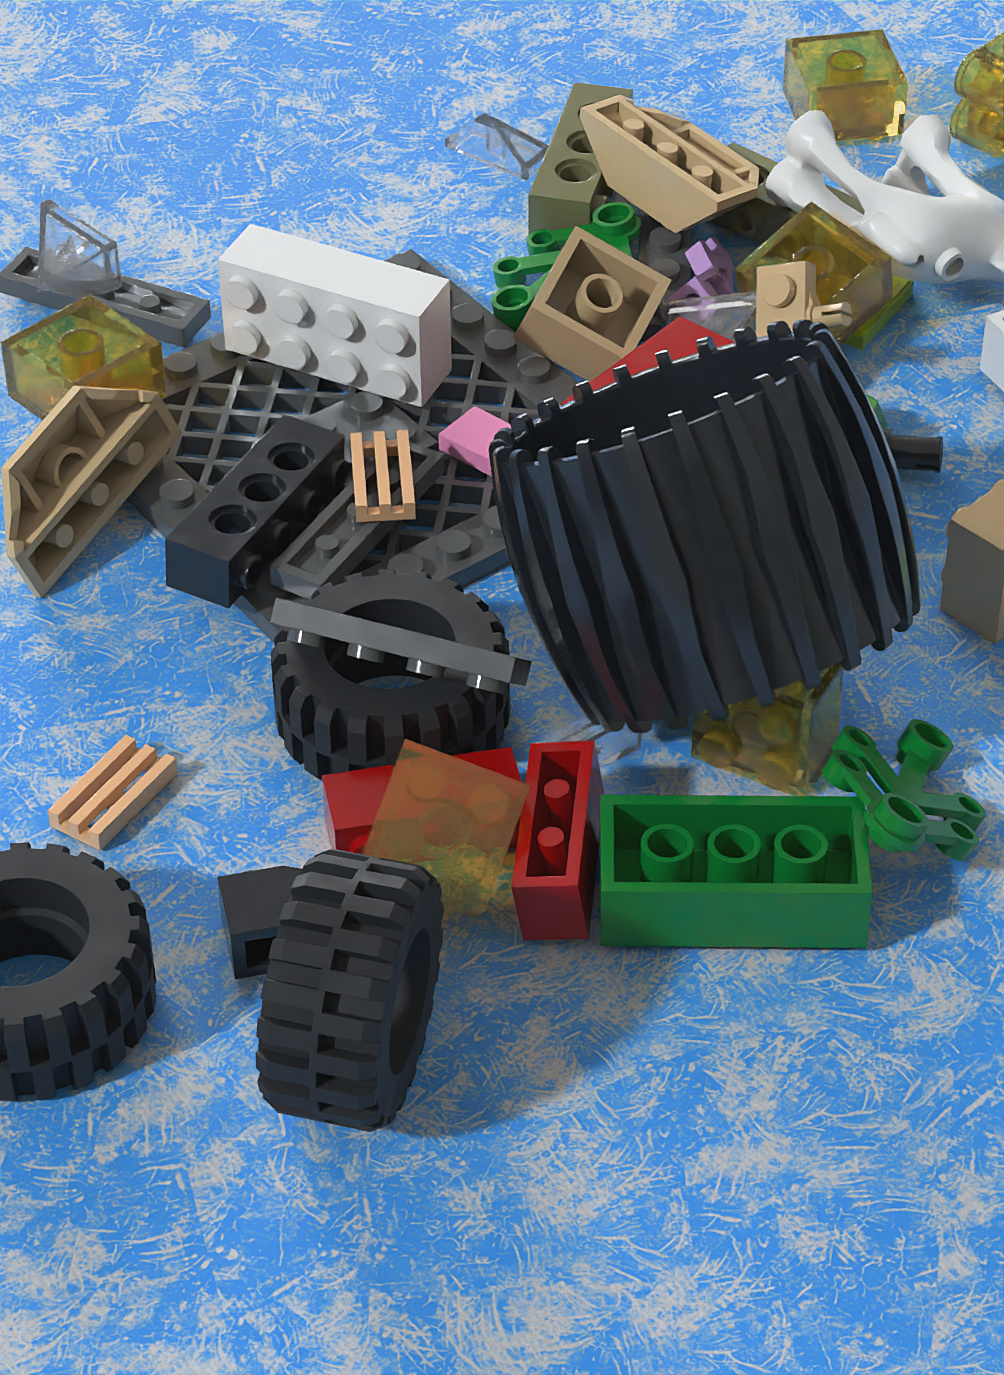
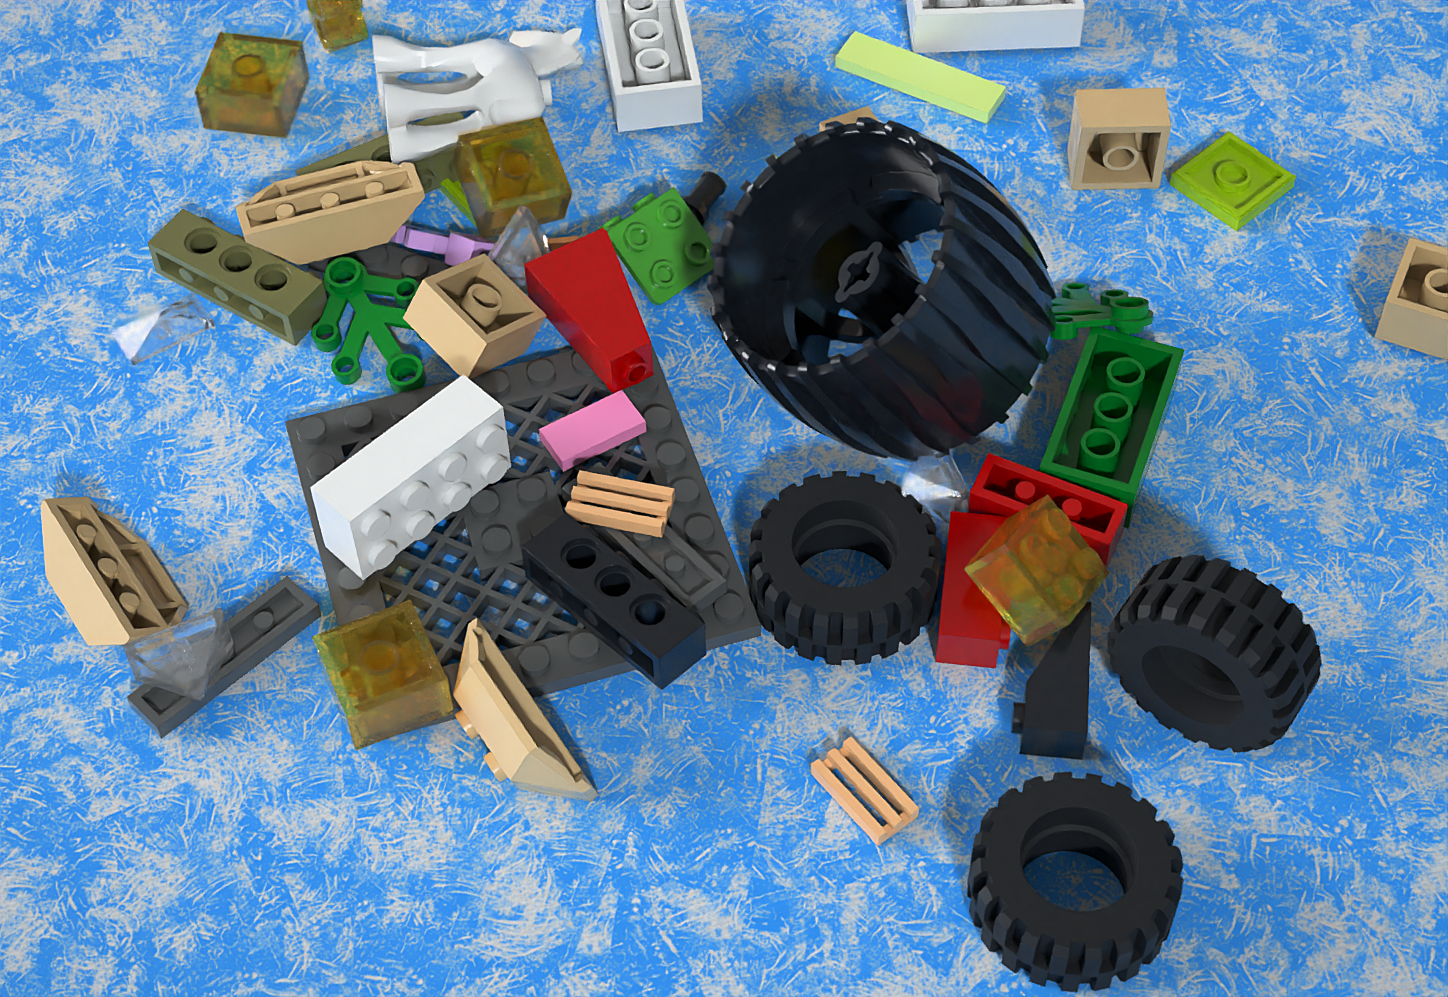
camera: 70 degrees left, 10 degrees up
(161, 190) = (105, 574): none -> tan wedge
(425, 653) = (866, 536): dark grey plate -> none
(789, 294) = (562, 199): tan plate -> none

